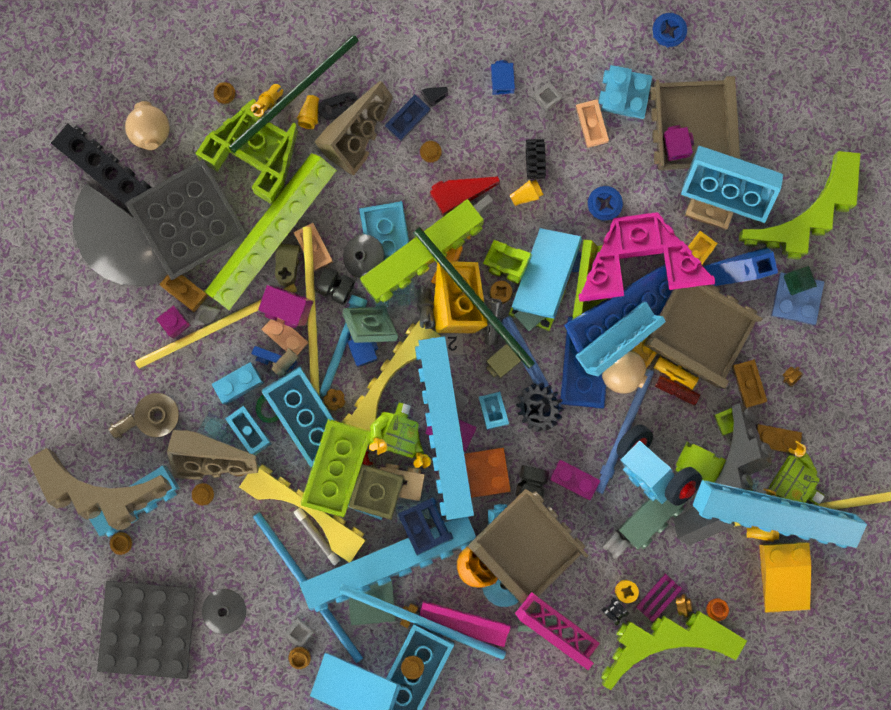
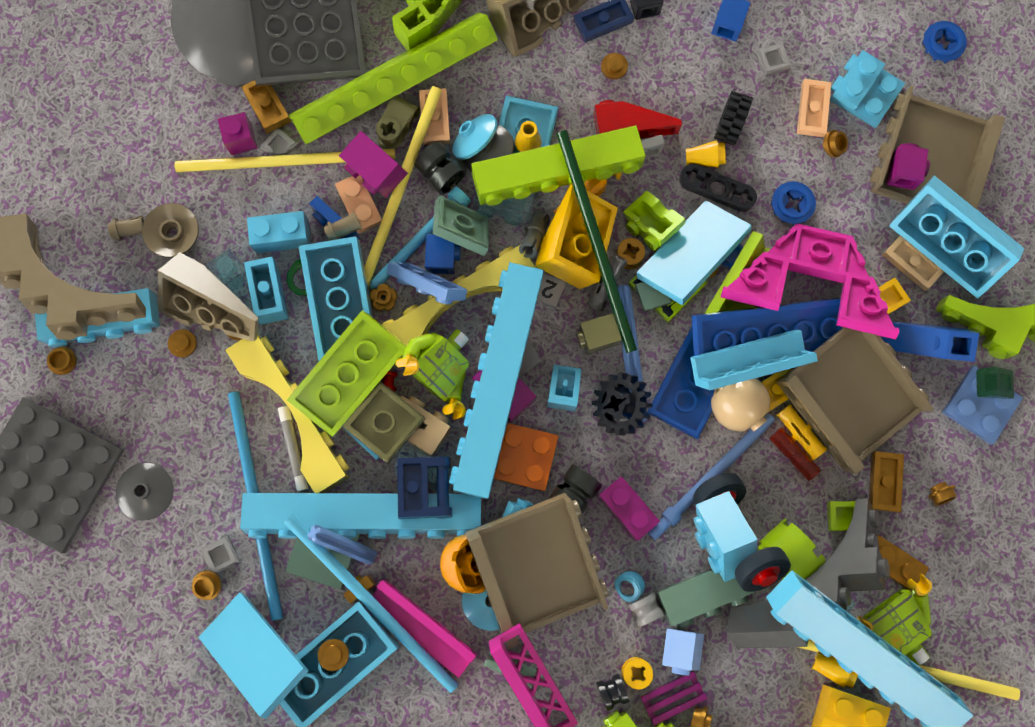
camera: 15 degrees right, 5 degrees down
(350, 251) = (474, 136): none -> medium azure dish
(363, 377) = (426, 282): none -> medium blue plate
(385, 590) = (342, 544): none -> medium blue axle
(394, 242) = (528, 137): none -> yellow cone
(561, 220) = (733, 202): none -> black beam
(601, 528) = (637, 582): none -> medium azure piece
(618, 145) = (835, 143): none -> pearl gold plate
(652, 563) = (683, 651): none -> light blue brick

